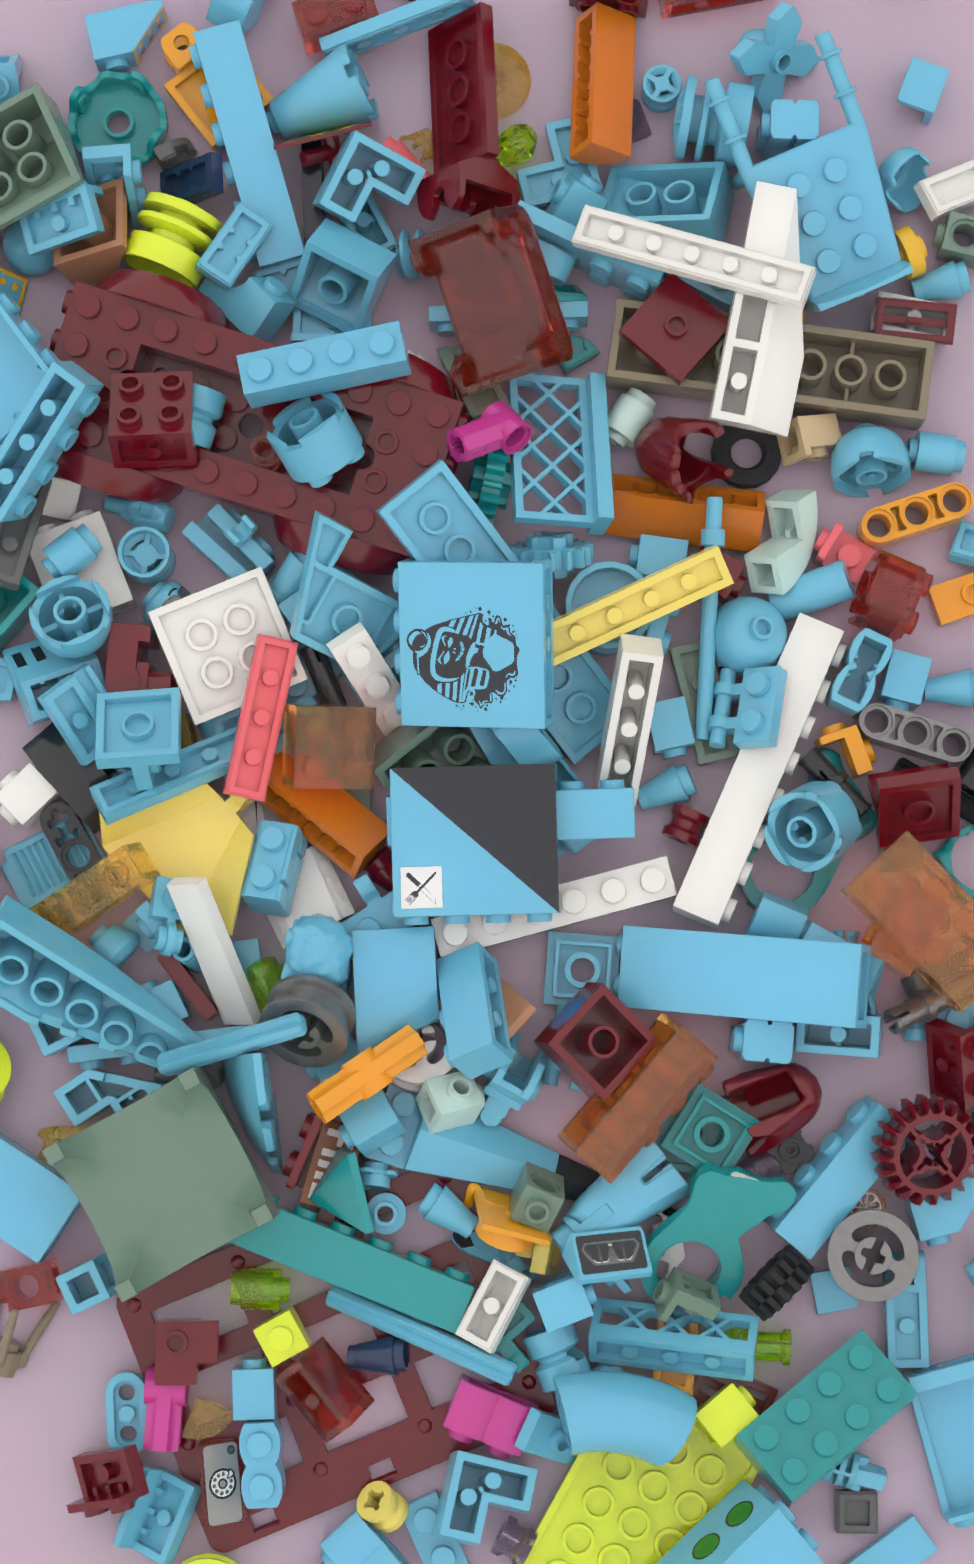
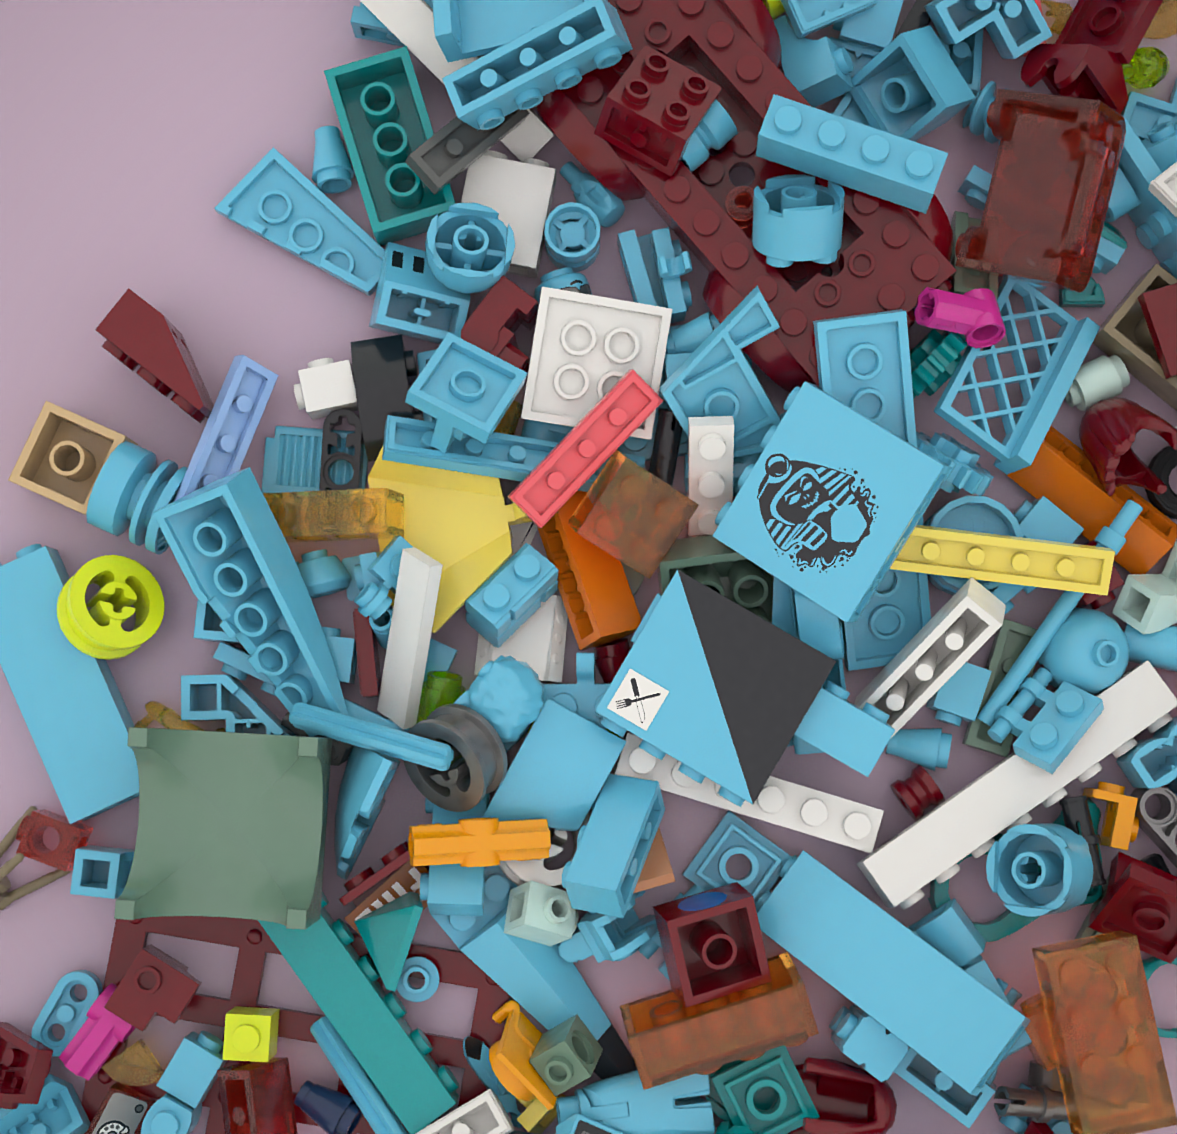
camera: 30 degrees right, 0 degrees up
(71, 552) = (506, 189): medium azure brick -> none
(73, 711) = (416, 335): medium azure plate -> none
(259, 1289) = (257, 976): clear neon green brick -> none
(376, 1176) = (429, 939): medium azure plate -> none
(447, 1211) = (474, 1012): medium azure cone -> none

